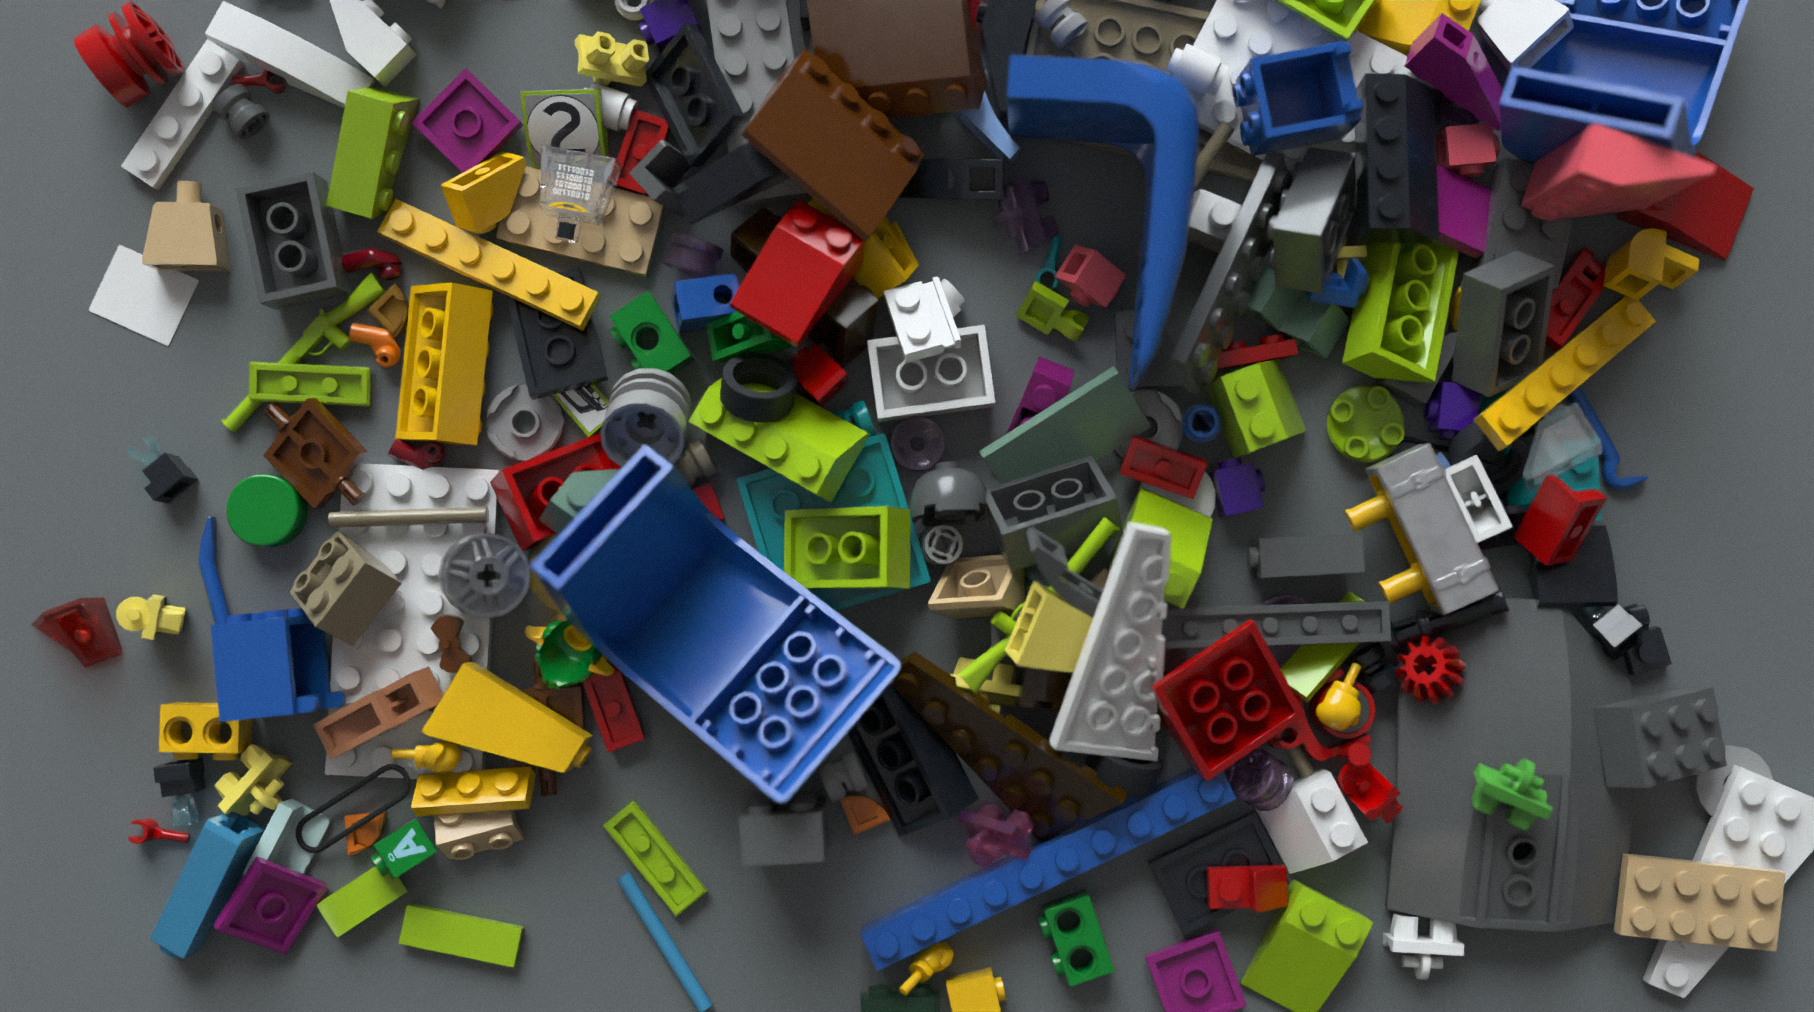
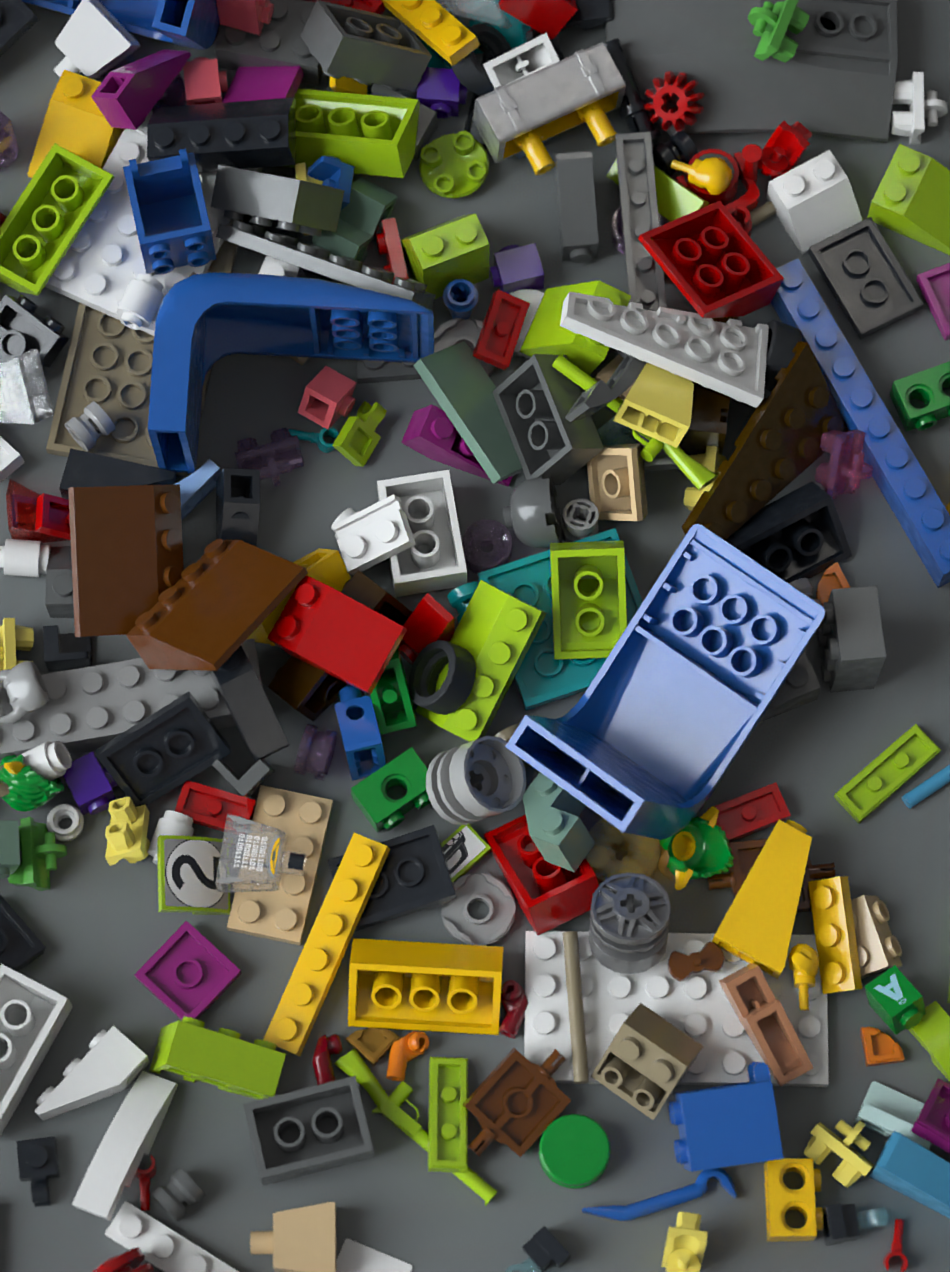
camera: 90 degrees left, 15 degrees down
(304, 846) = (848, 1065): black piece -> none
(485, 192) = (256, 947): yellow slope -> none
(1247, 887) = (876, 251): red slope -> none
(1261, 780) = (789, 230): clear purple wheel -> none

